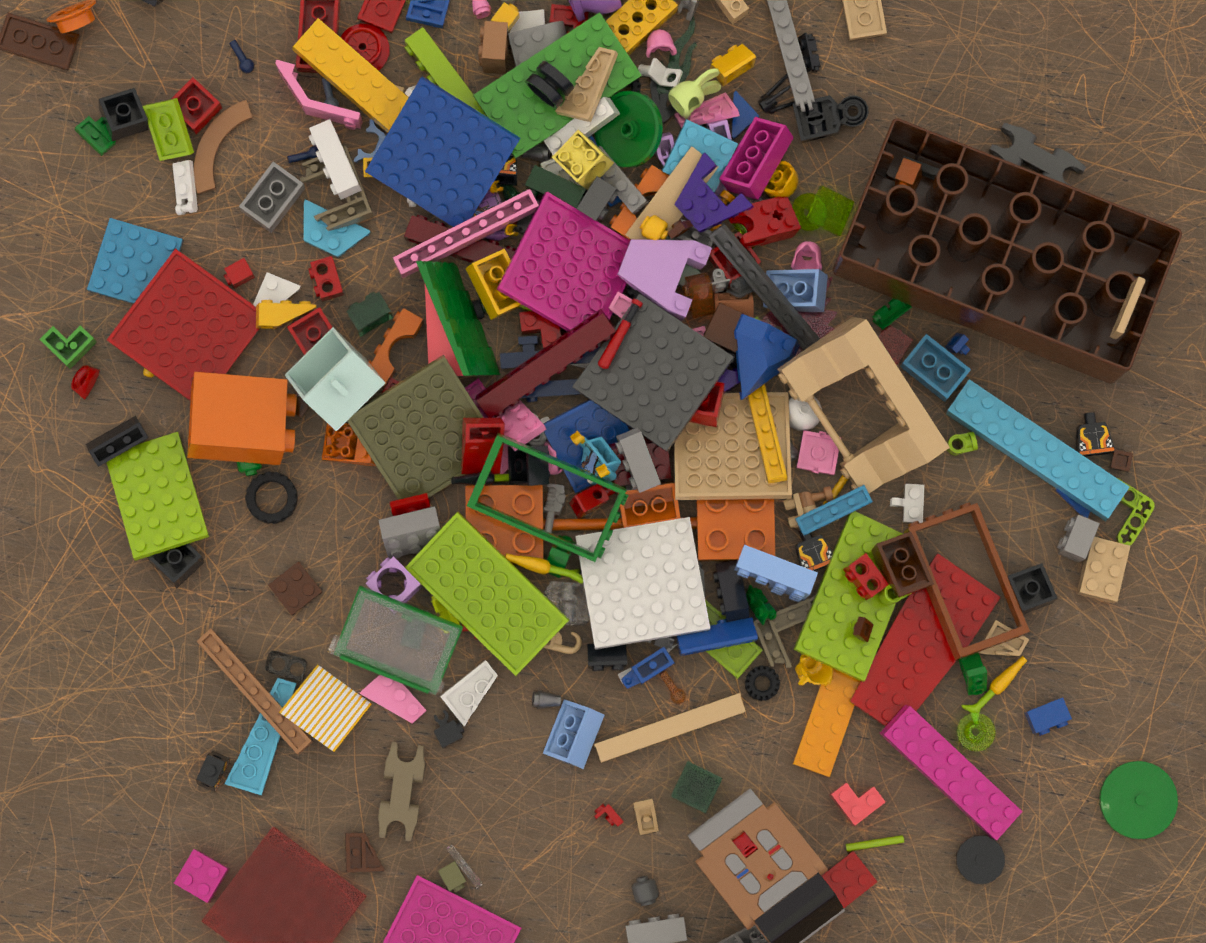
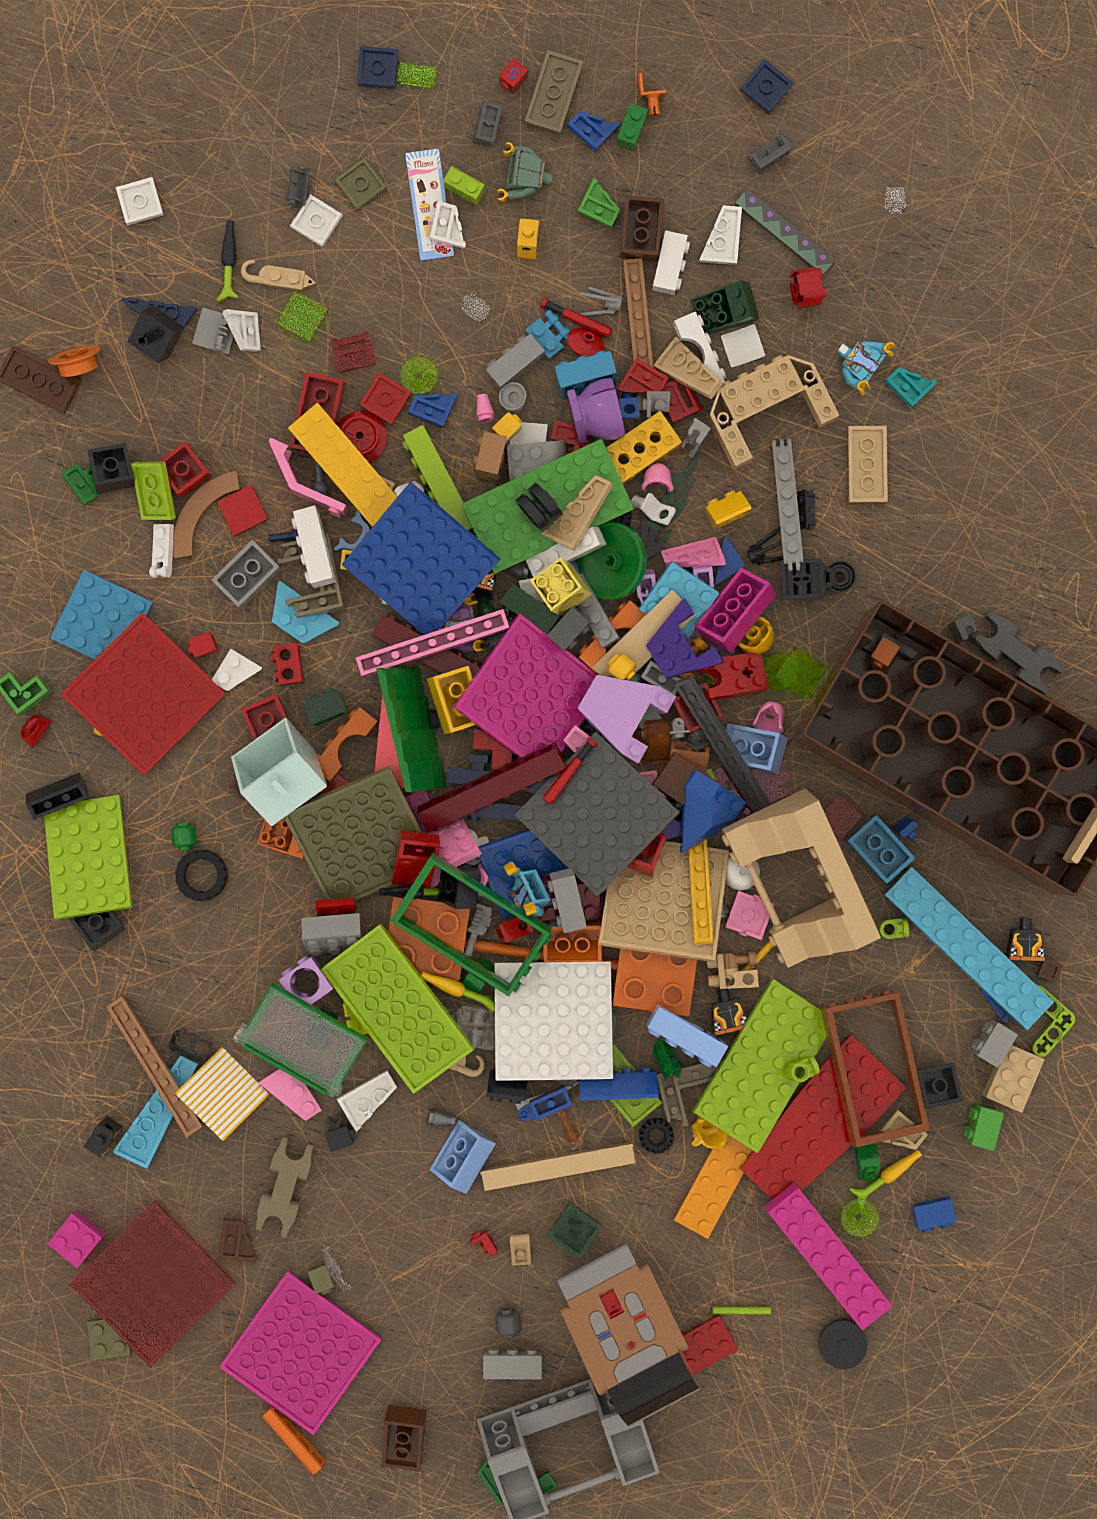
camera: 15 degrees right, 5 degrees up
(240, 418) = (179, 795): orange brick -> none
(246, 65) = (242, 435): dark blue bar -> none
(258, 137) = (242, 510): none -> red tile
(273, 315) = (232, 694): yellow slope -> none
(295, 588) = (211, 968): reddish brown plate -> none
(679, 228) = (646, 671): reddish brown plate -> none
(690, 94) = (680, 535): yellowish green piece -> none
(731, 591) = (640, 1043): black brick -> none
(833, 510) = (755, 977): dark azure tile -> none
(856, 807) = (730, 1274): coral brick -> none
(863, 629) = (764, 1103): reddish brown plate -> none
(869, 573) = (779, 1047): red brick -> none
(885, 316) = (841, 788): green hinge -> none
(902, 564) = (814, 1046): reddish brown slope -> none
(912, 503) = (834, 979): white plate -> none
(977, 138) = (959, 628): none -> dark grey hinge
(1081, 621) = (983, 1126): none -> bright green brick
(1138, 800) = (1009, 1309): green dish -> none

